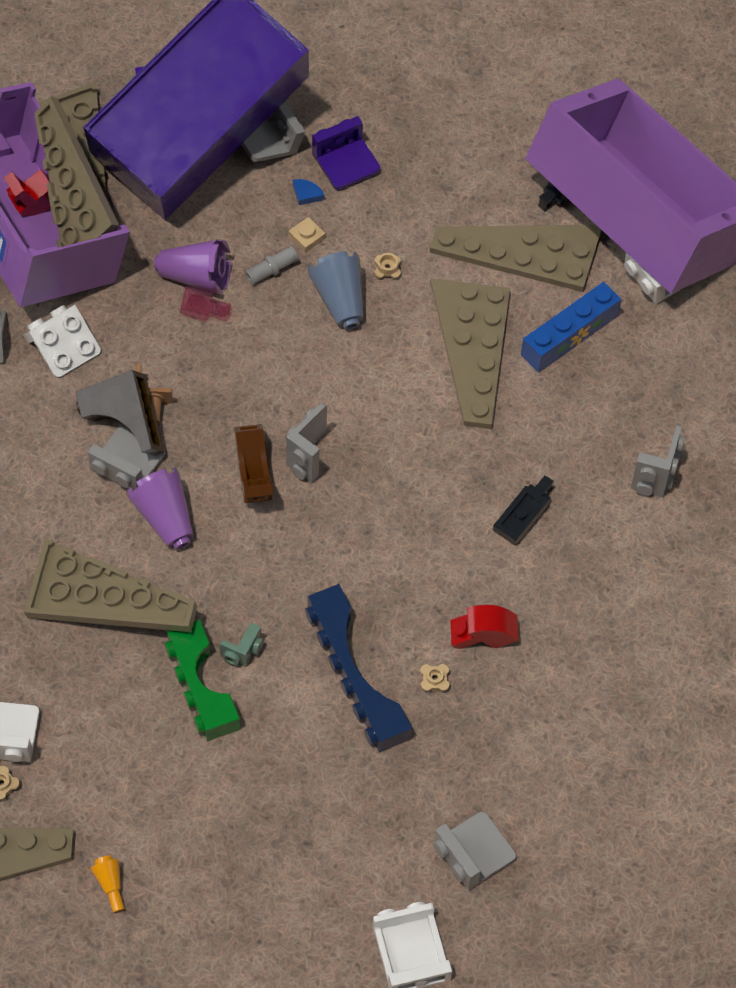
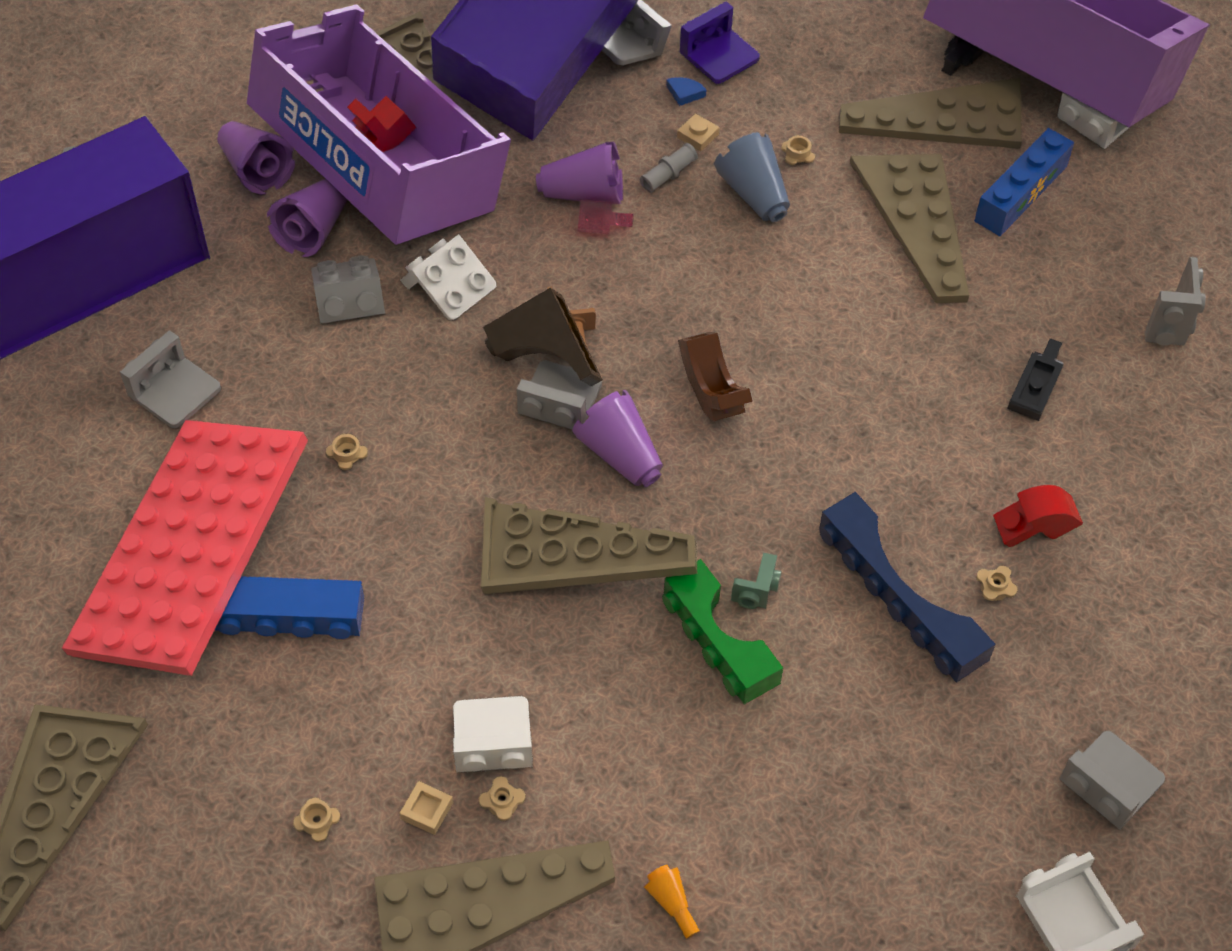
camera: 10 degrees left, 5 degrees down
(73, 189) = (431, 104): dark tan wing -> none
(301, 452) = (768, 351): light grey bracket -> none

